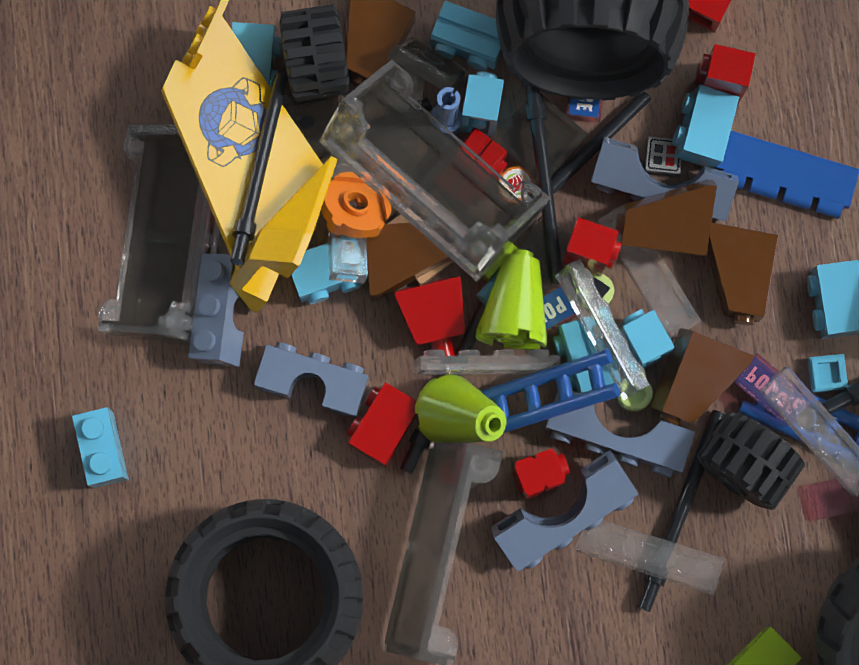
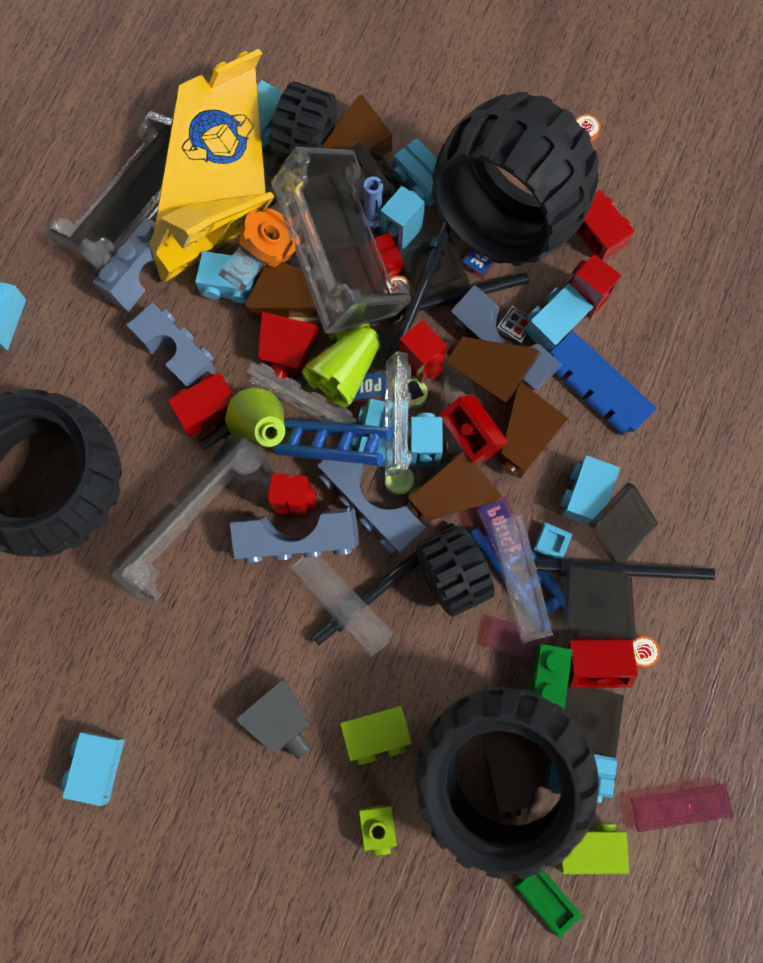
camera: 30 degrees right, 5 degrees down
(245, 226) = (178, 200): black bar -> none
(689, 301) = (473, 428): none -> red brick

